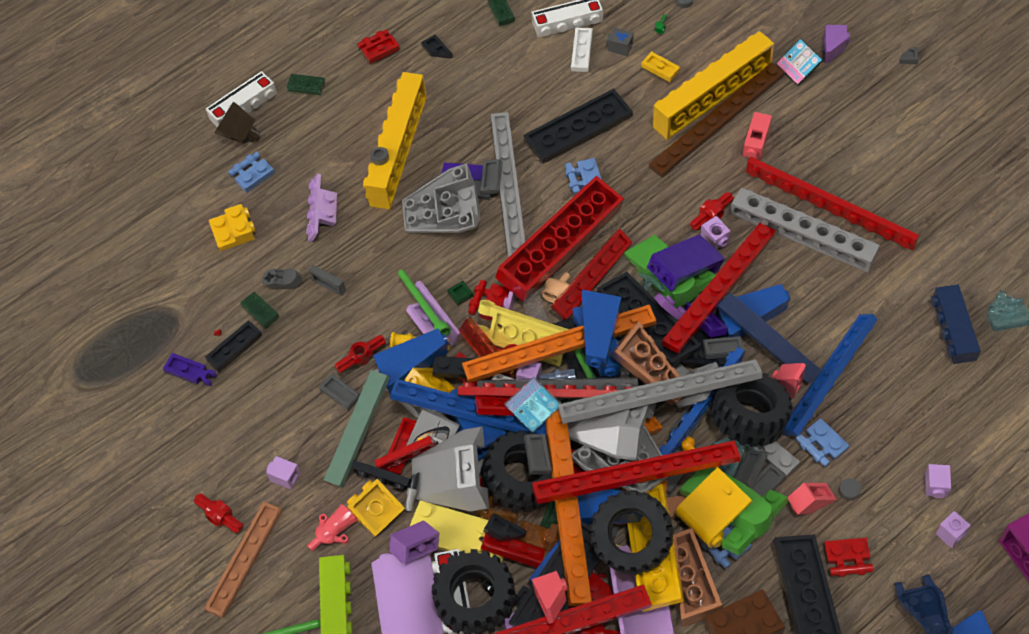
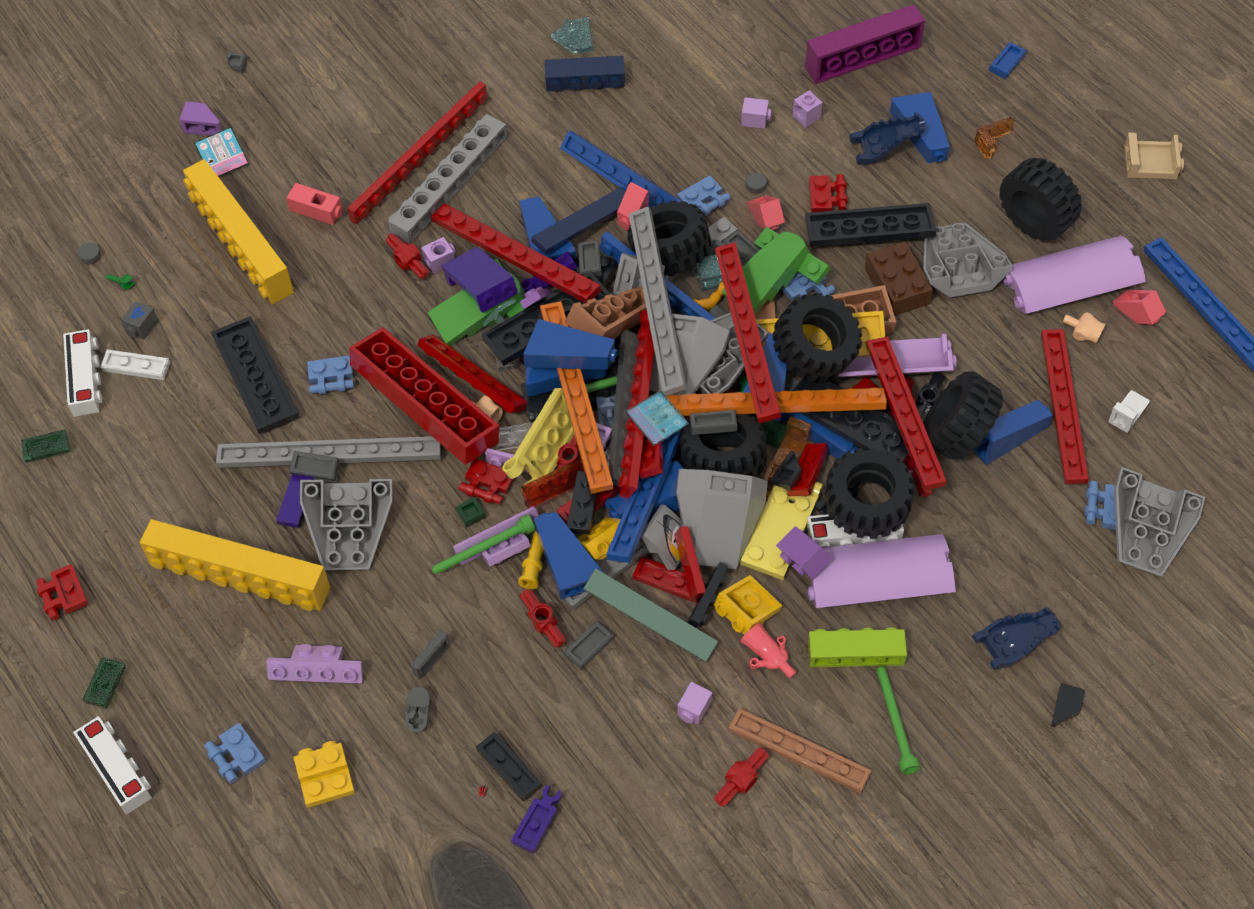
camera: 90 degrees left, 0 degrees up
(237, 125) = (158, 764): dark brown torso -> none
(259, 310) = (459, 736): clear green plate -> none
(379, 156) = (273, 569): dark grey tile -> none
(412, 492) = (733, 566): light grey piece -> none
(436, 48) = (84, 525): black tile -> none
(550, 594) = (880, 417): coral slope -> none
(660, 66) = (188, 285): yellow plate -> none
(711, 509) = (781, 279): yellow door -> none
(716, 120) = (285, 247): reddish brown plate -> none

